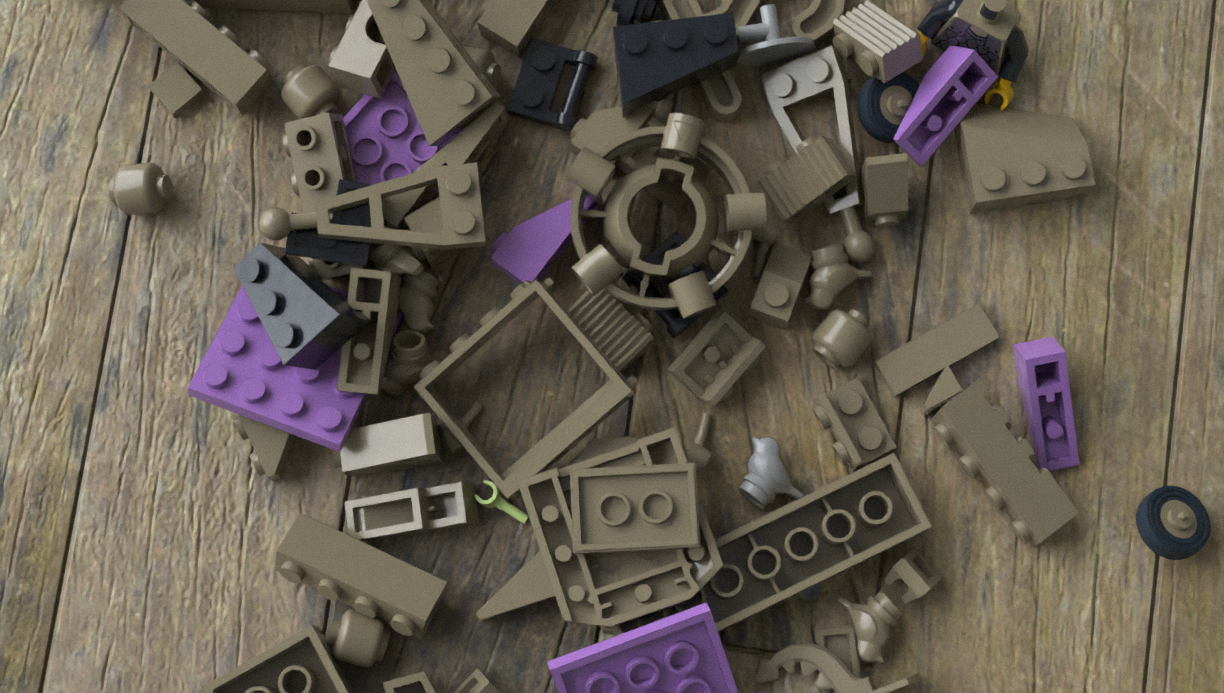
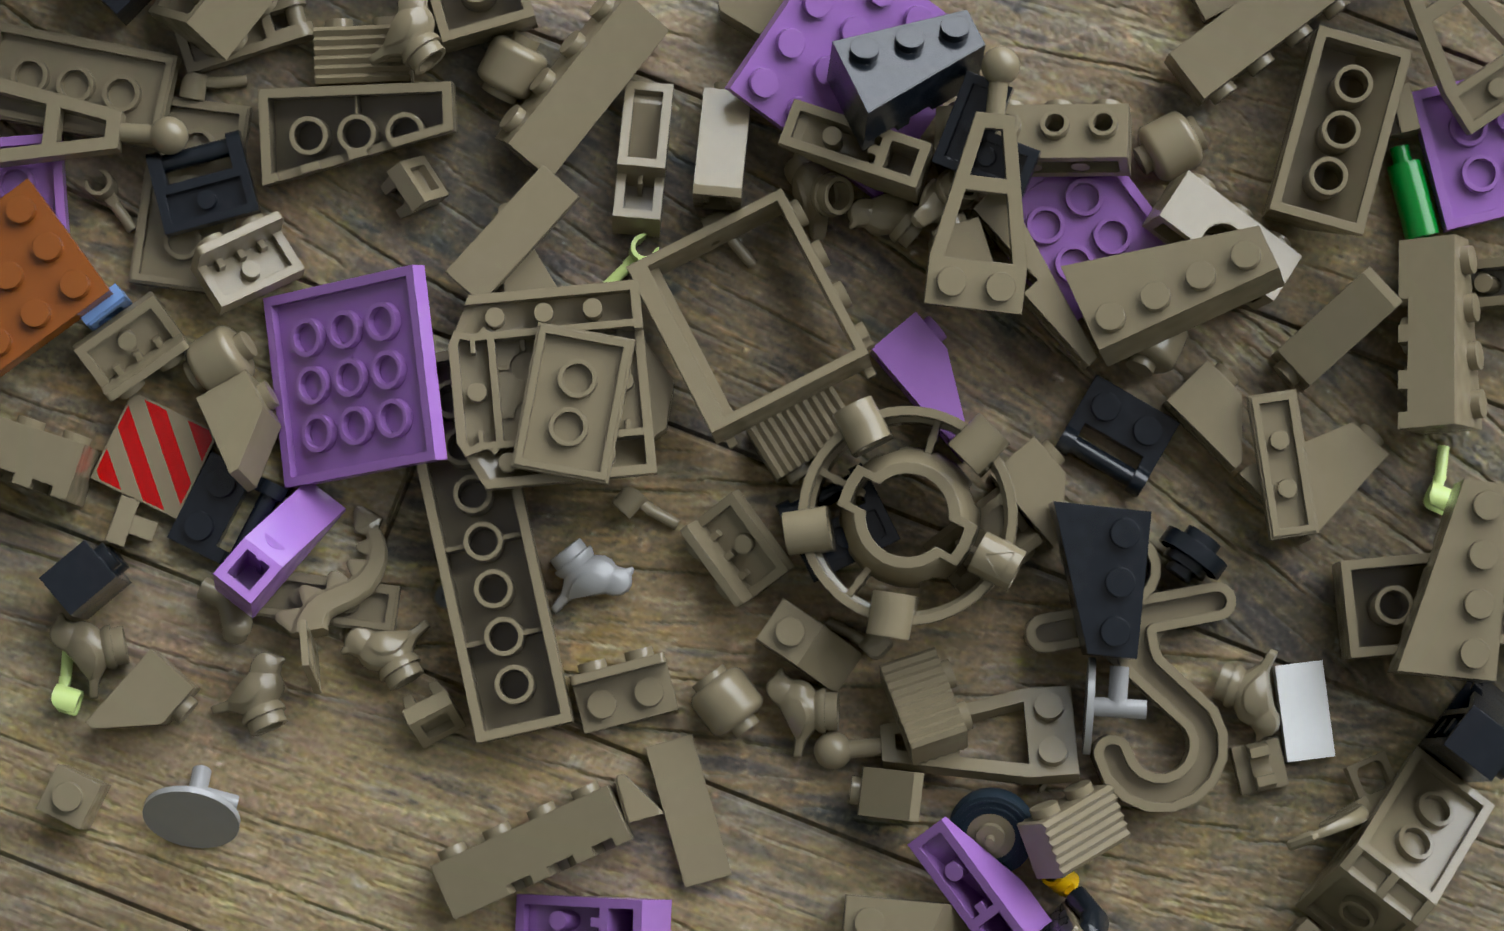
camera: 95 degrees right, 5 degrees up
(501, 599) = (513, 233): none -> dark tan tile

